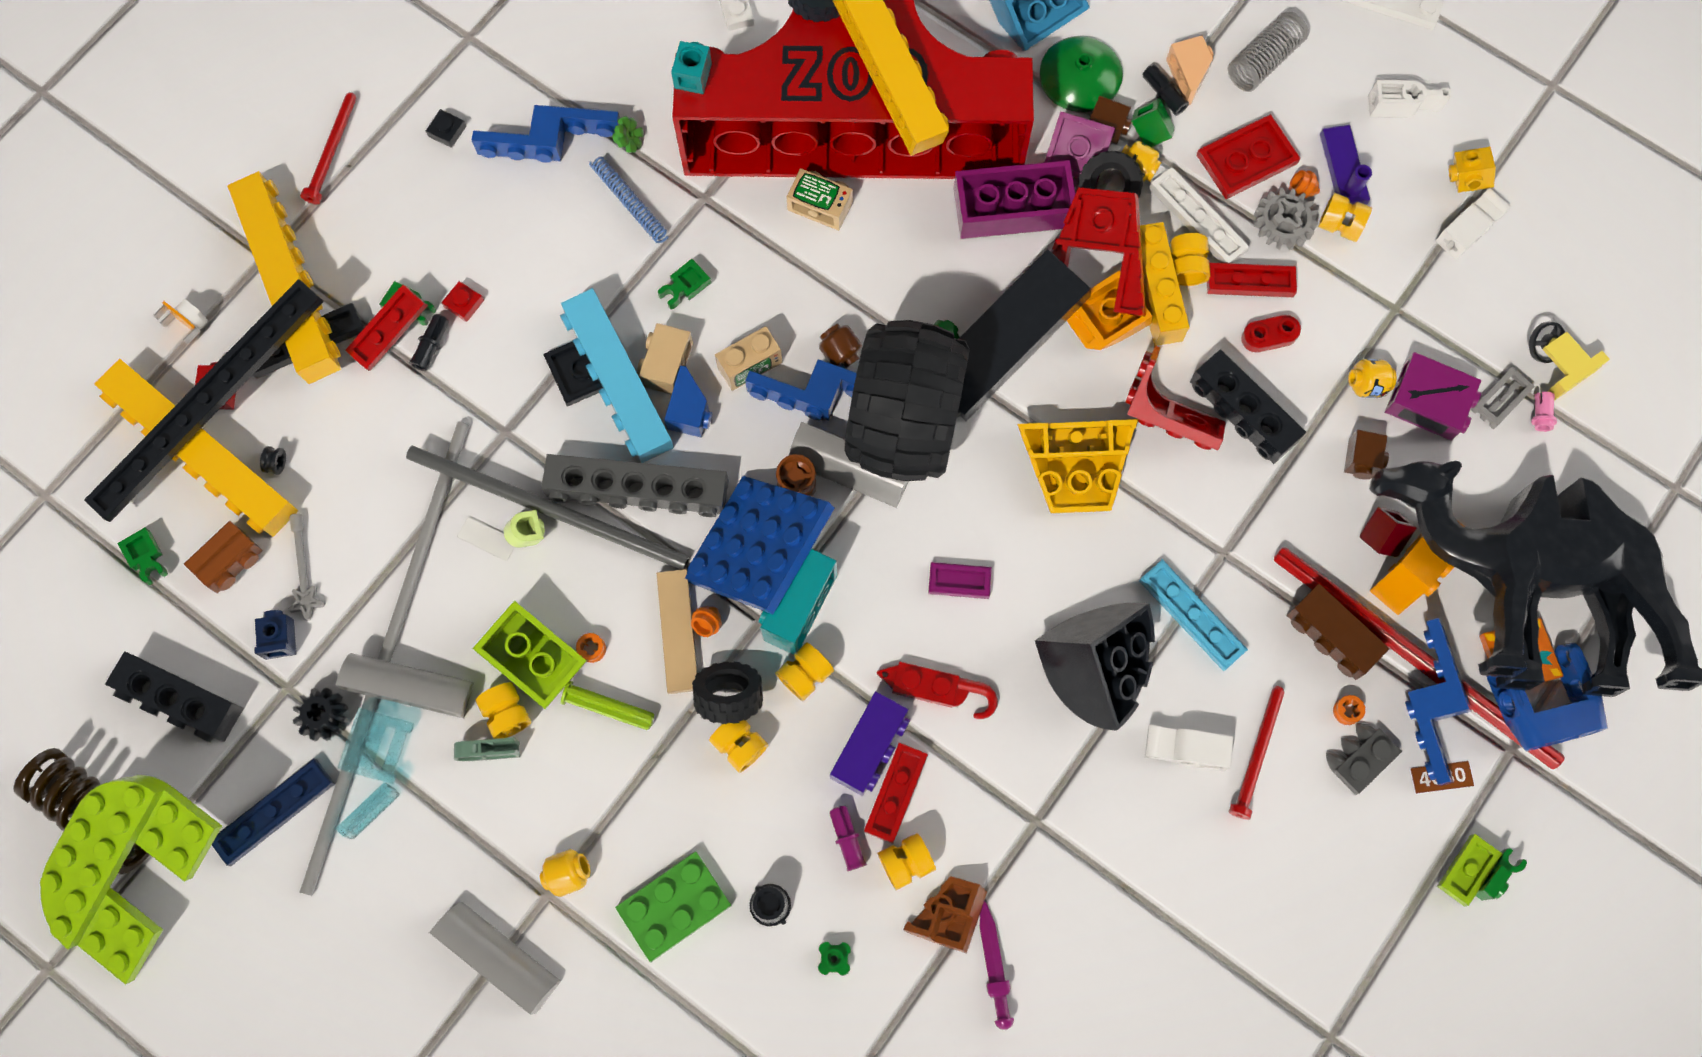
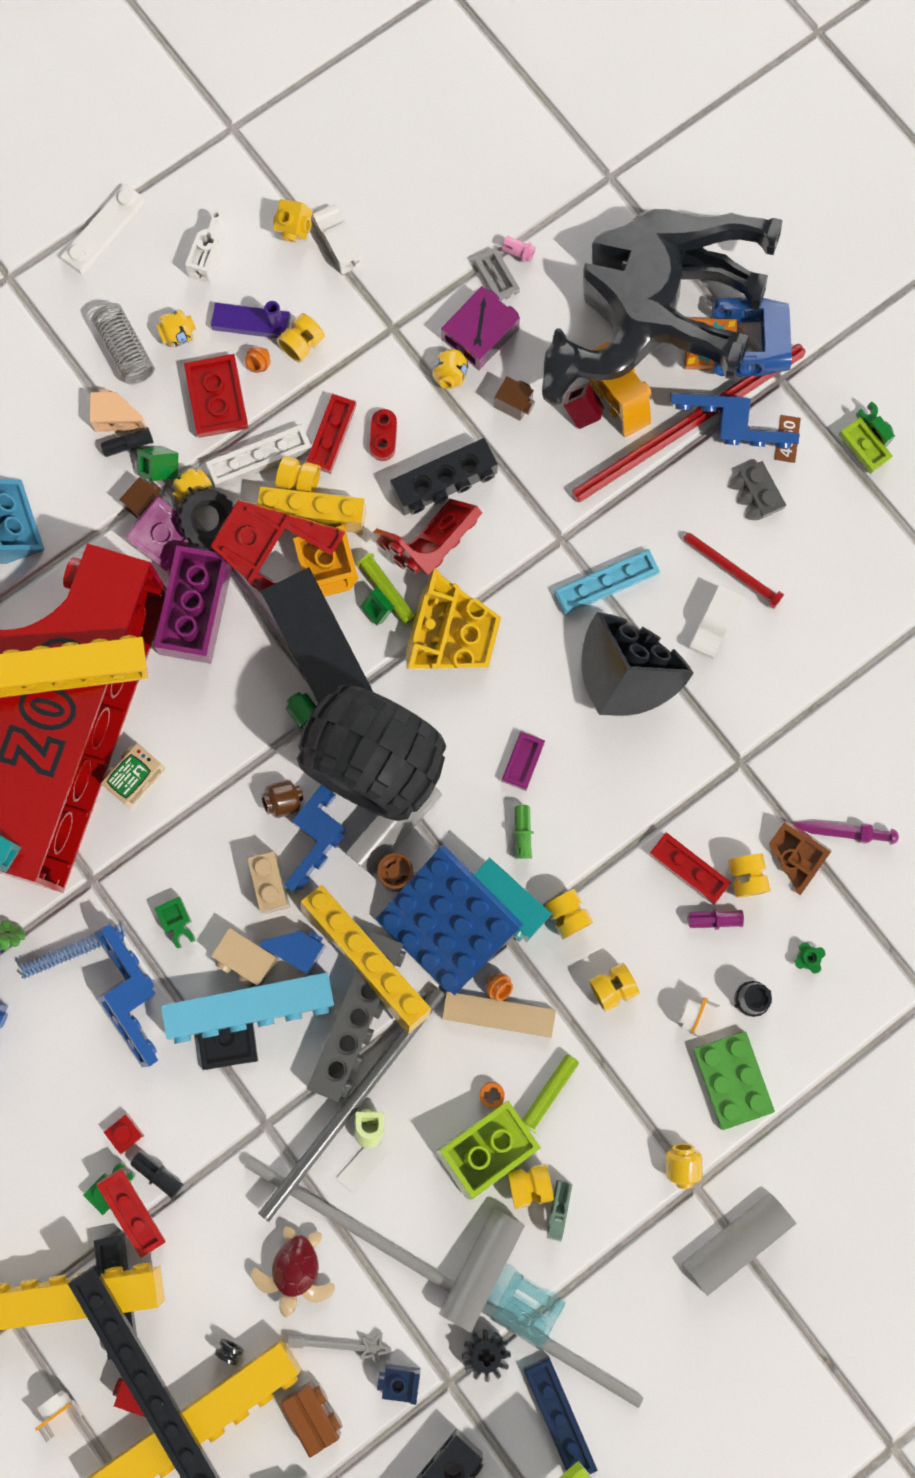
camera: 75 degrees left, 5 degrees up
(363, 499) = (294, 1272): none -> animal
(368, 811) = (585, 1329): clear light blue tile -> none
(596, 258) = (127, 995): none -> blue bracket
(694, 472) = (387, 982): none -> yellow arch
(727, 708) = (588, 990): black tyre -> none
(732, 837) = (691, 1014): none -> white piece
(870, 744) = (645, 877): dark purple brick -> none
(879, 600) = (523, 832): none -> bright green axle
(936, 687) = (609, 807): red plate -> none
(1077, 380) = (377, 606): none -> green plate
(1079, 85) = (94, 519): green dish -> none
(1101, 383) = (382, 582): none -> lime axle
(1286, 219) = (272, 385): light grey gear -> none
(1305, 96) = (176, 328): none -> yellow head
(1337, 632) = (655, 475): reddish brown brick -> none
(1339, 710) = (718, 481): orange bush -> none
(1566, 355) = (480, 213): light yellow piece -> none

